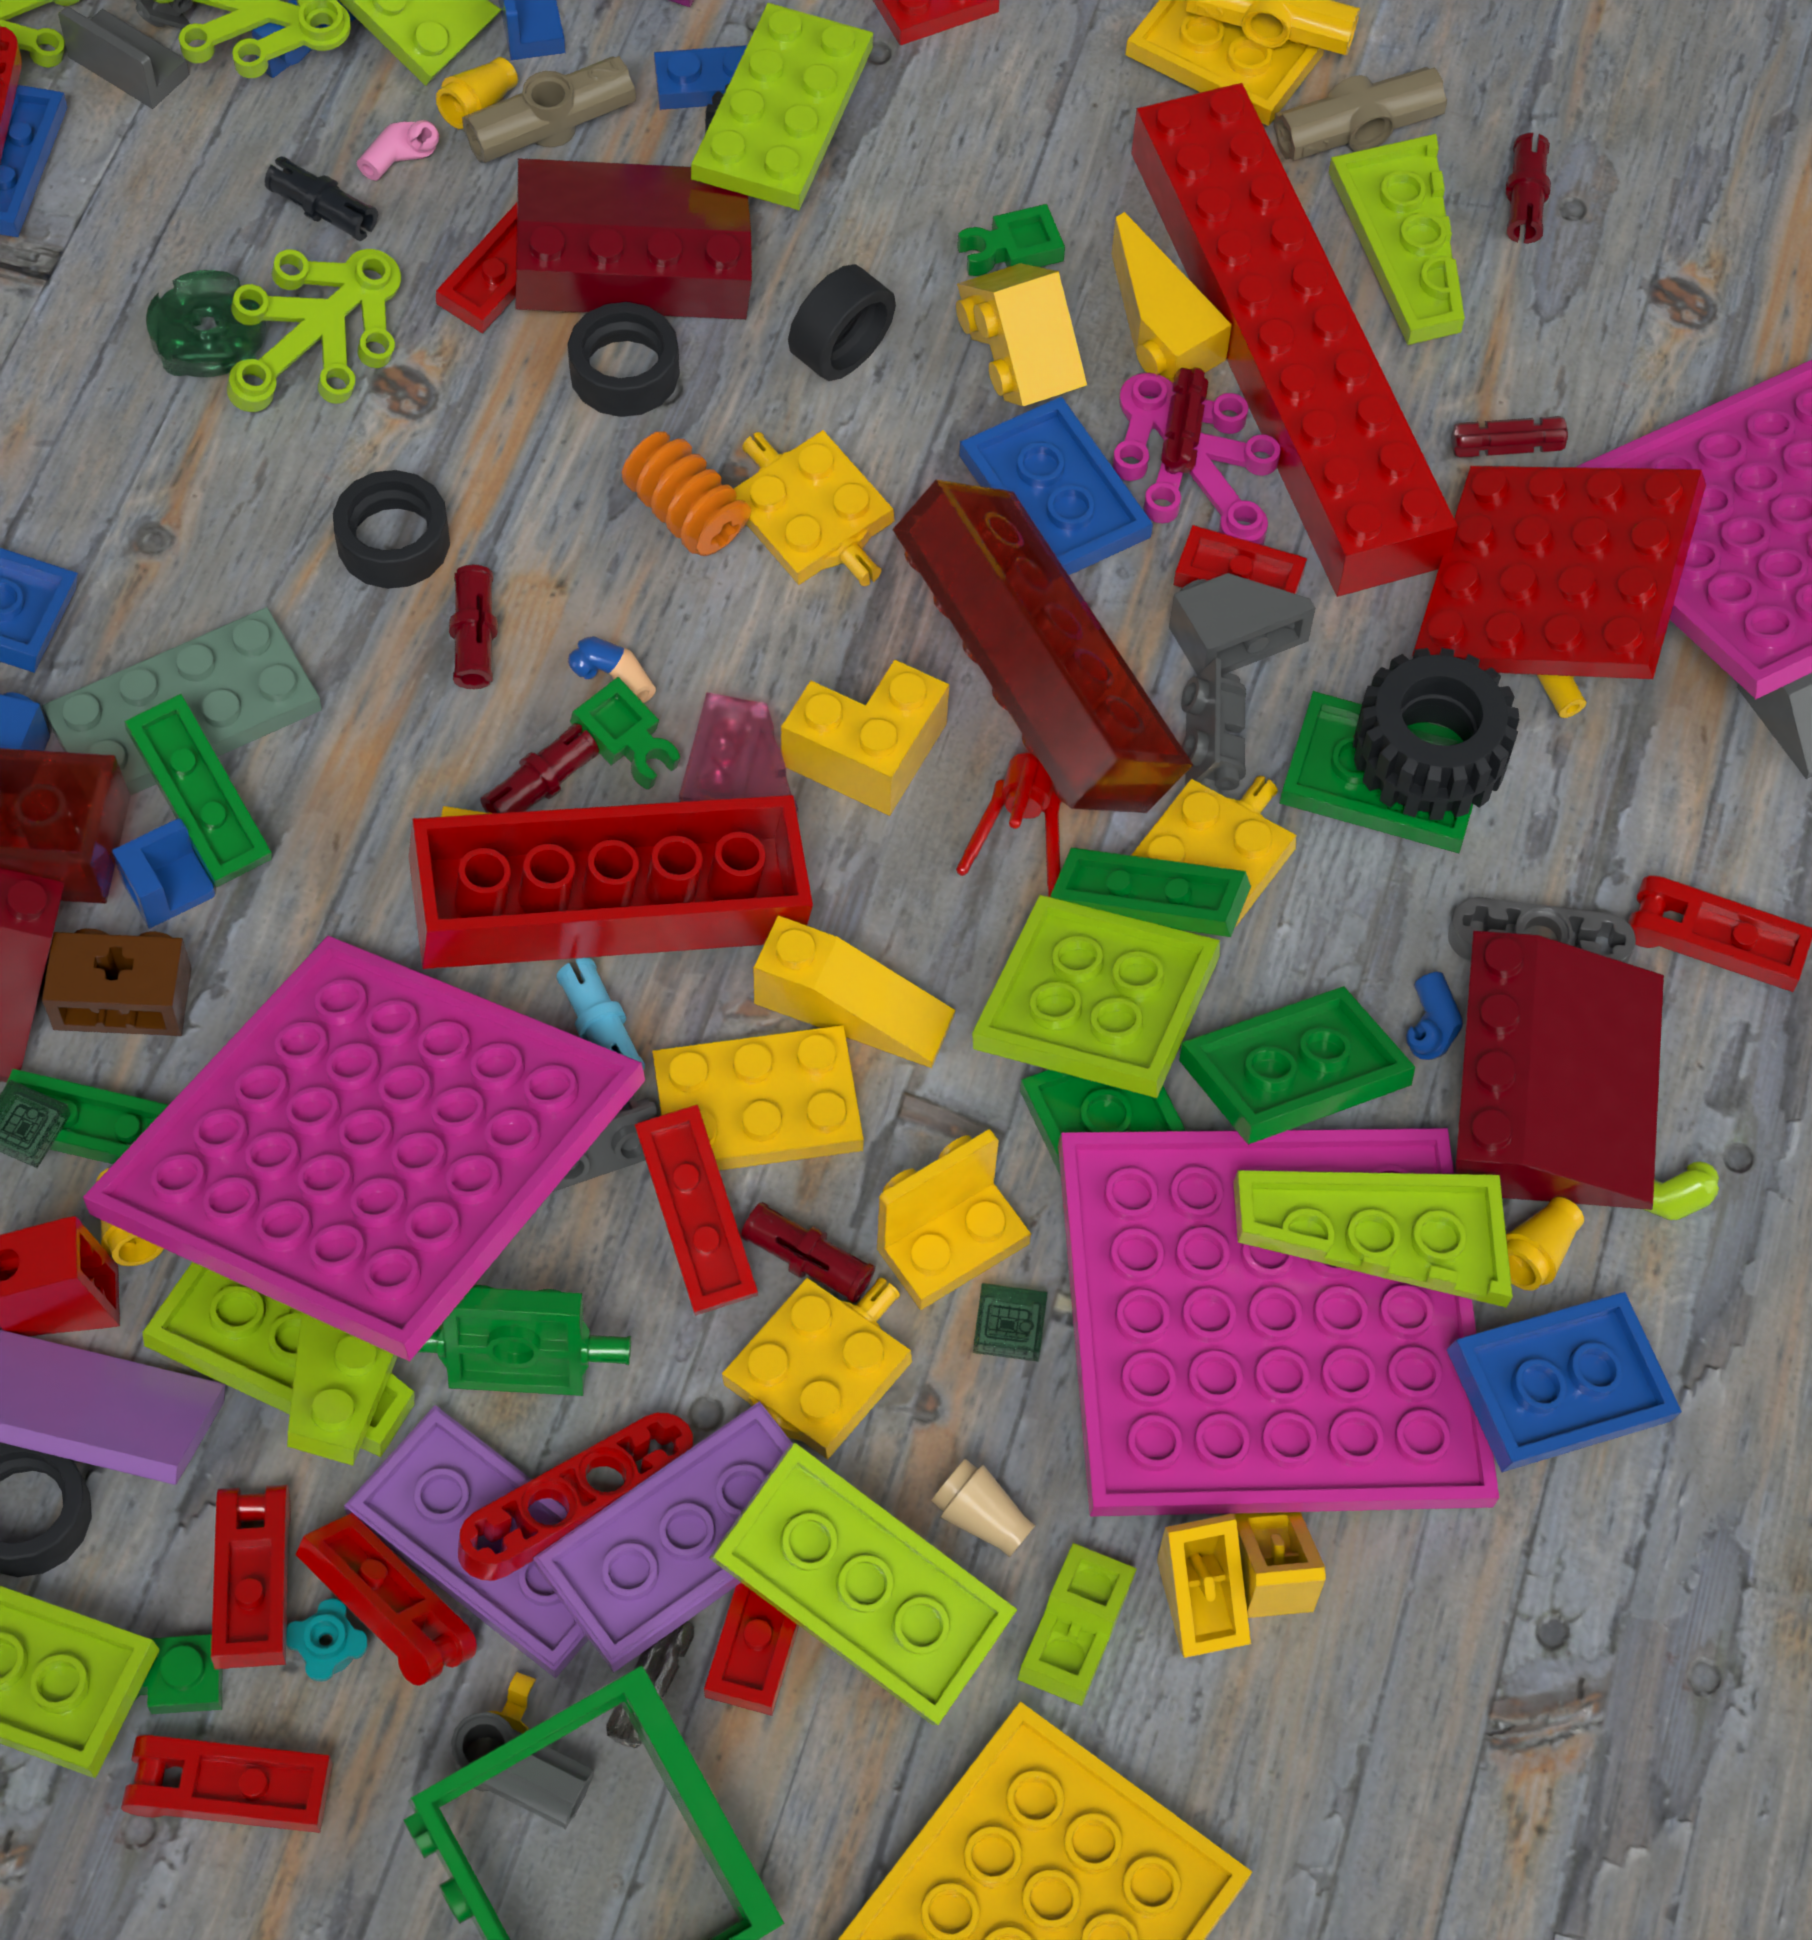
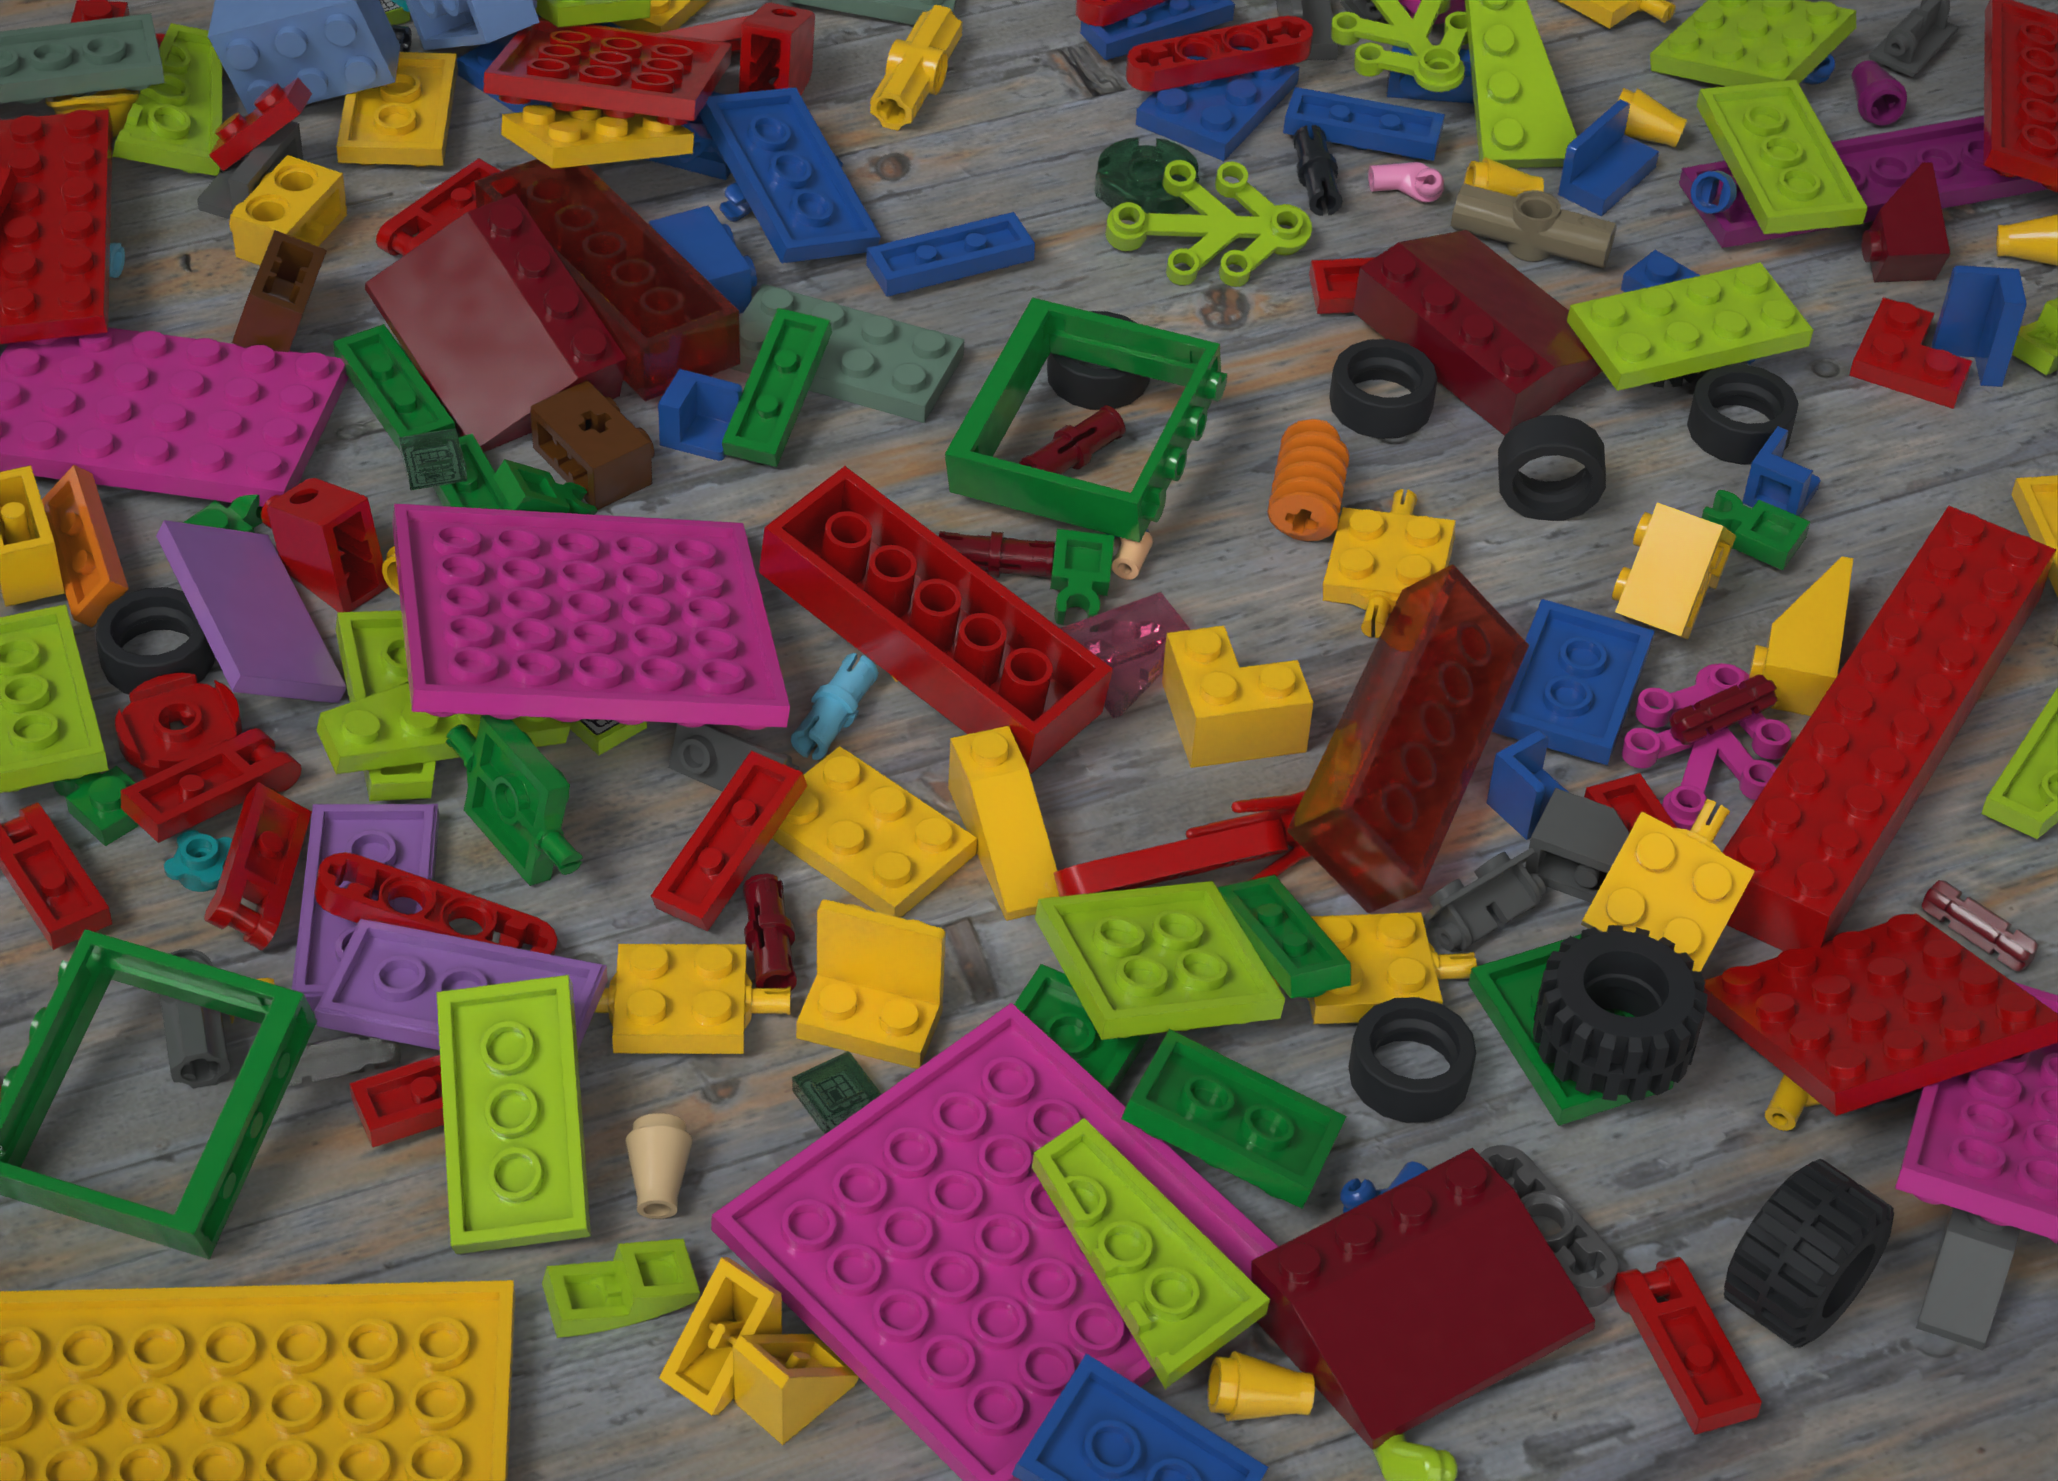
camera: 50 degrees right, 15 degrees down
(116, 151) = (1166, 66): none -> red beam
(127, 1522) = (145, 722): none -> red plate
(150, 538) = (950, 254): none -> blue plate
(151, 194) = (1217, 112): none -> blue plate
(152, 1072) = (536, 490): none -> green plate
(303, 121) = (1366, 123): none -> blue plate
(449, 499) = (1104, 342): none -> green window
(887, 116) = (1744, 387): none -> black tyre
(980, 186) = (1779, 480): none -> blue panel
(996, 912) = (1174, 860): none -> red beam
(1138, 612) = (1520, 784): none -> blue panel
(1337, 859) = (1404, 1097): none -> black tyre
(1345, 608) = (1672, 885): none -> yellow plate
(1742, 796) = (1808, 1253): none -> black tyre

